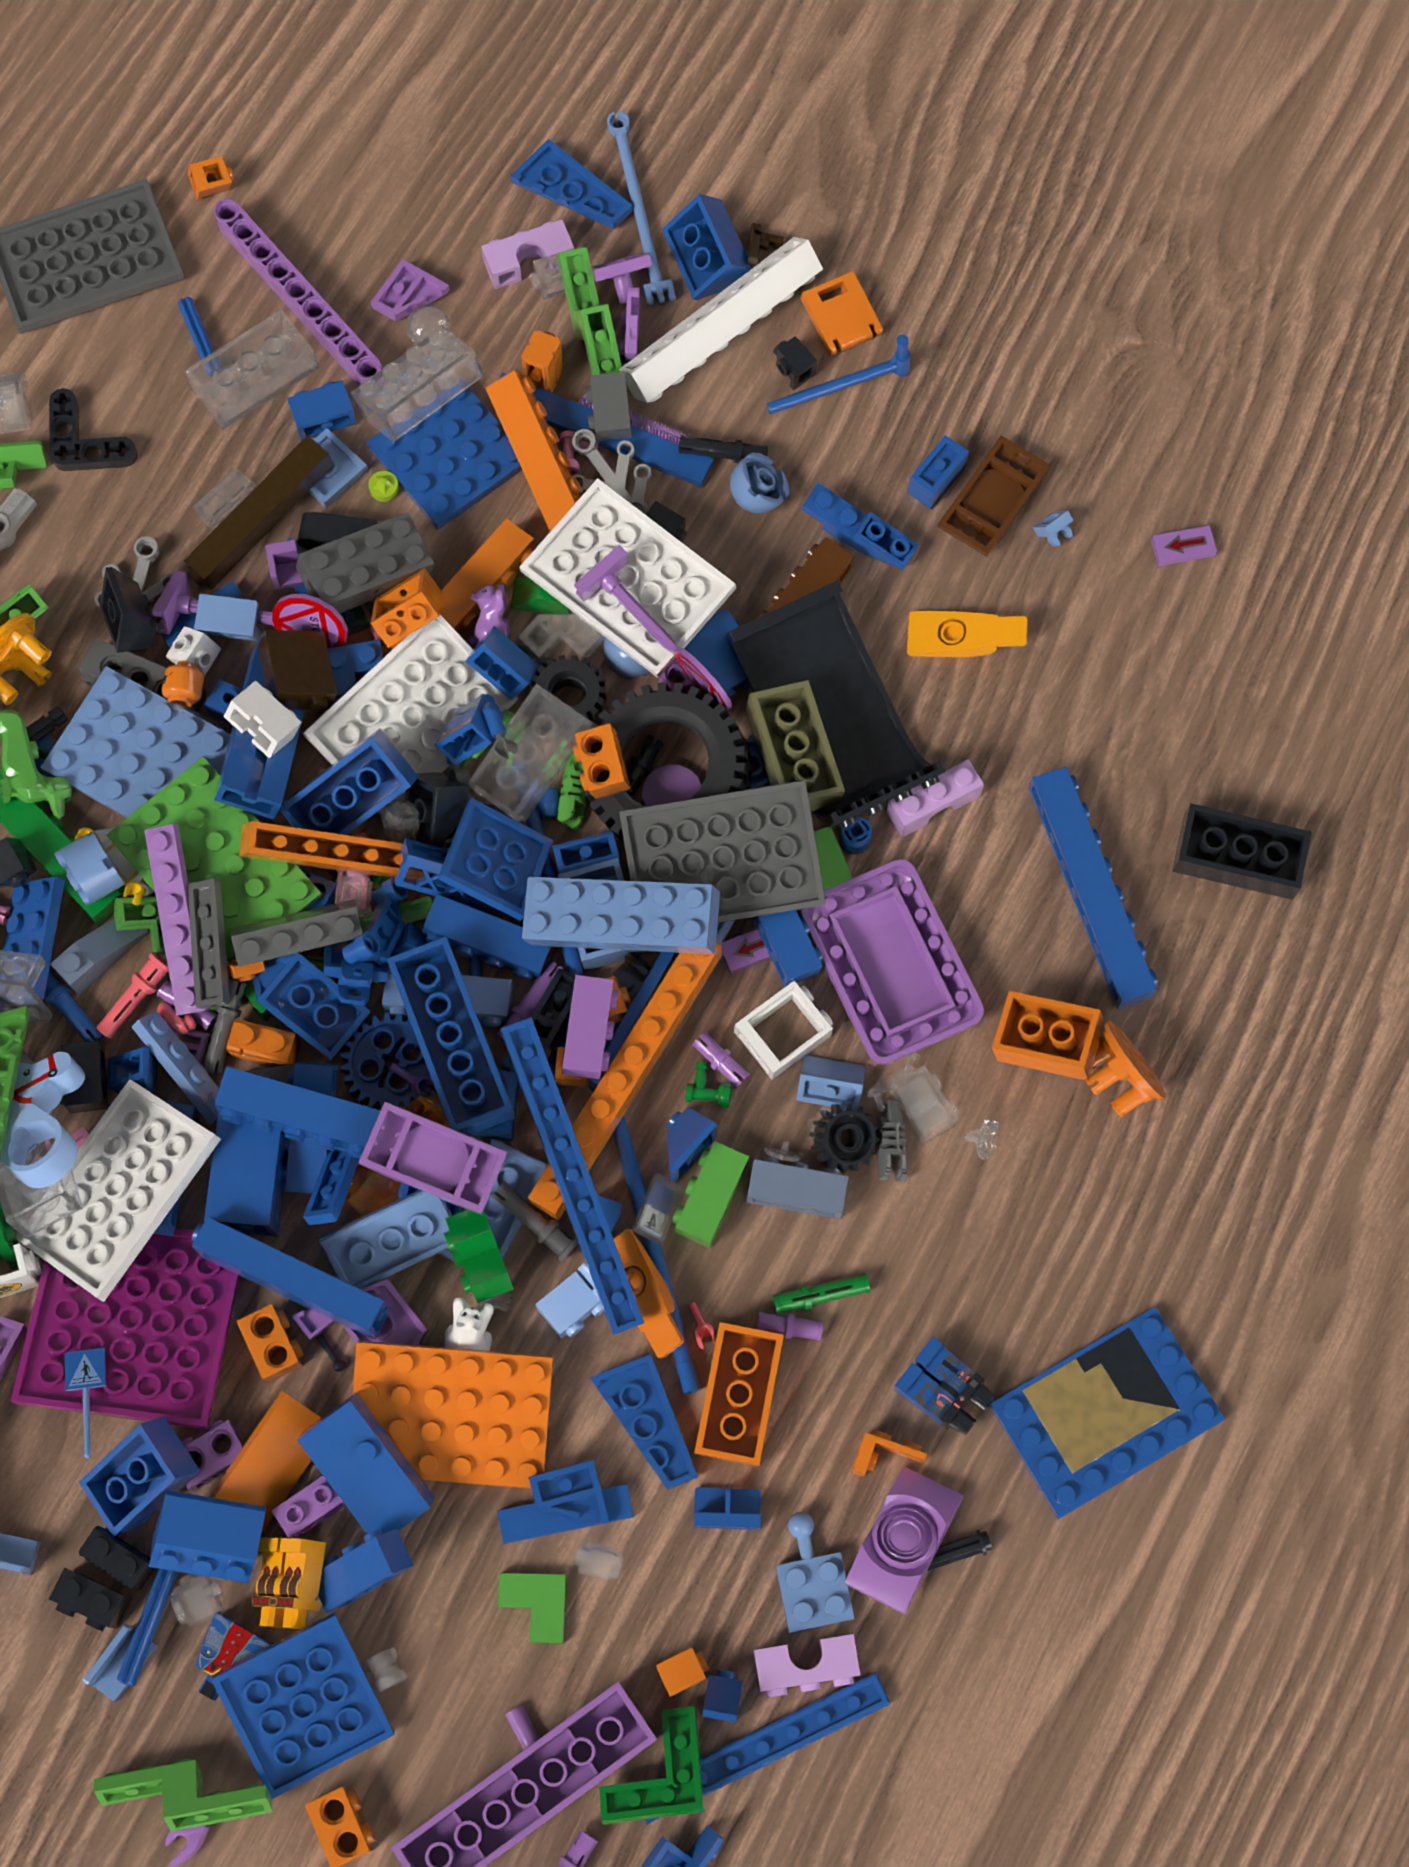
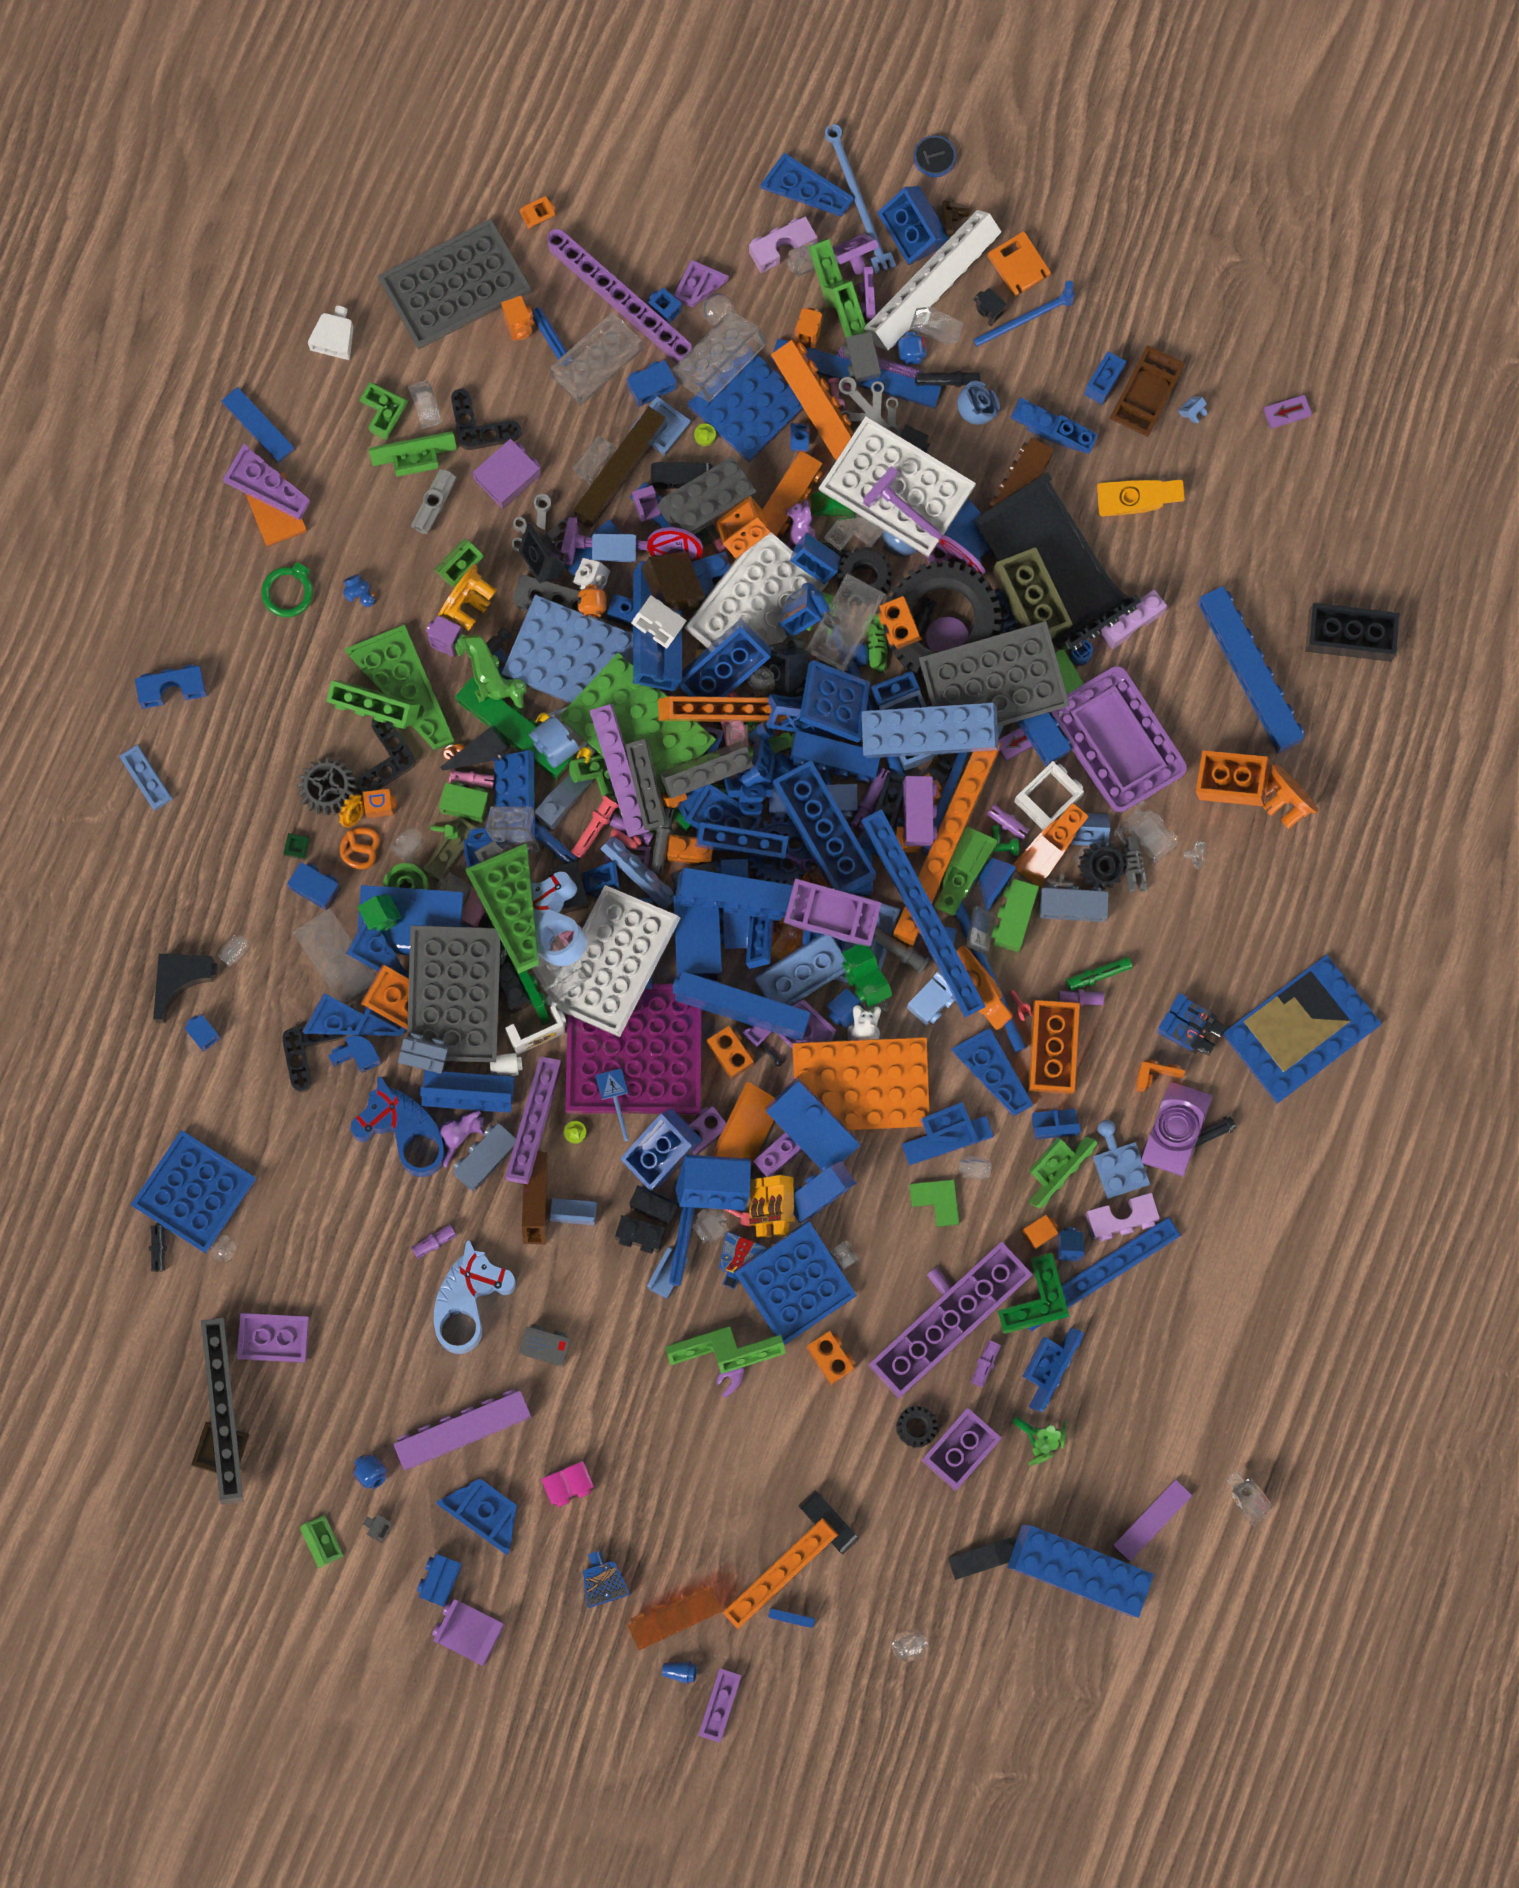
camera: 10 degrees left, 5 degrees up
(27, 1432) = (575, 1132): none -> lime tile
(106, 504) = (507, 473): none -> medium lavender brick
(155, 305) = (517, 318): none -> orange brick
(249, 1592) = (744, 1217): none -> coral hand
(329, 1040) = (741, 841): none -> blue brick
(358, 313) = (661, 298): none -> blue brick
(440, 1298) = (842, 1008): none -> blue brick
(508, 501) = (799, 437): none -> blue leg
(647, 1118) = (964, 868): none -> bright green piece
(681, 404) = (912, 348): none -> blue head
(717, 376) = (936, 325): none -> clear brick
(719, 1574) = (1056, 1166): none -> bright green bracket
(748, 167) = (934, 156): none -> black tile
(775, 1100) = (1050, 846): none -> orange piece

